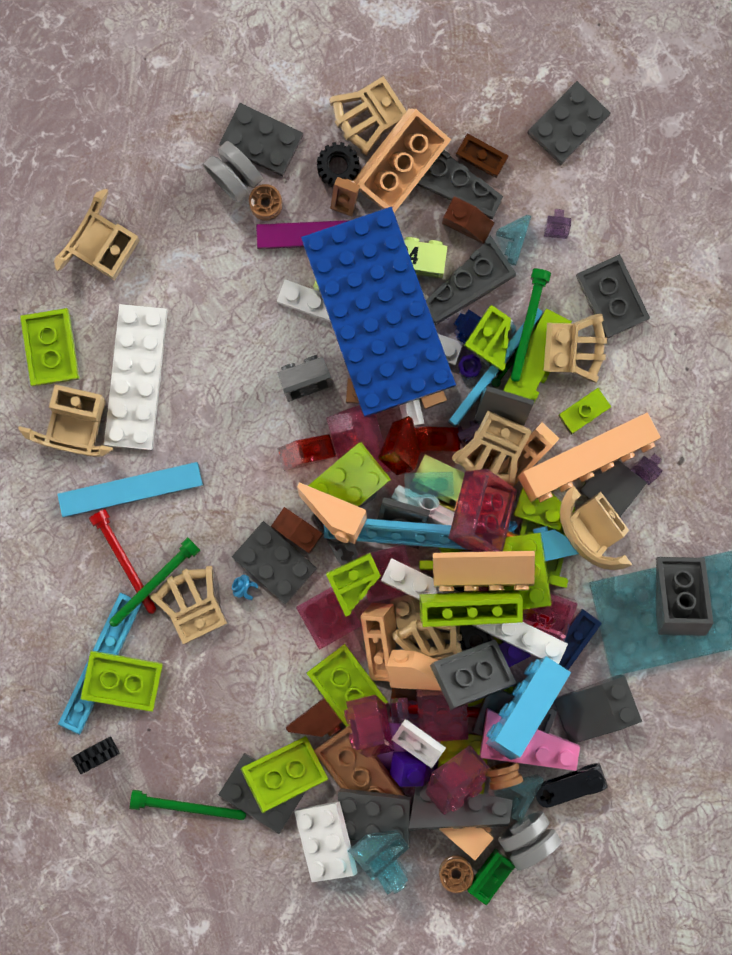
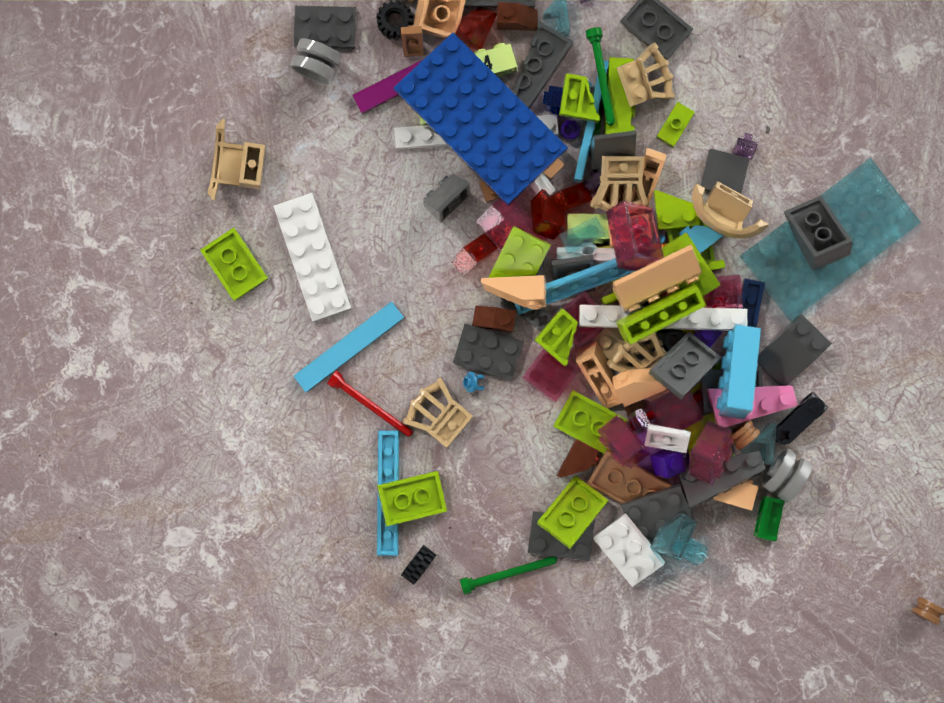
camera: 20 degrees left, 0 degrees up
(72, 422) = (280, 314): tan piece -> none
(186, 551) = (415, 374): green piece -> none
(265, 192) = (346, 67): medium nougat wheel -> none
(419, 212) = (475, 28): none -> clear red slope
(451, 883) = (748, 524): medium nougat wheel -> none
(589, 457) = (696, 157): light nougat brick -> none

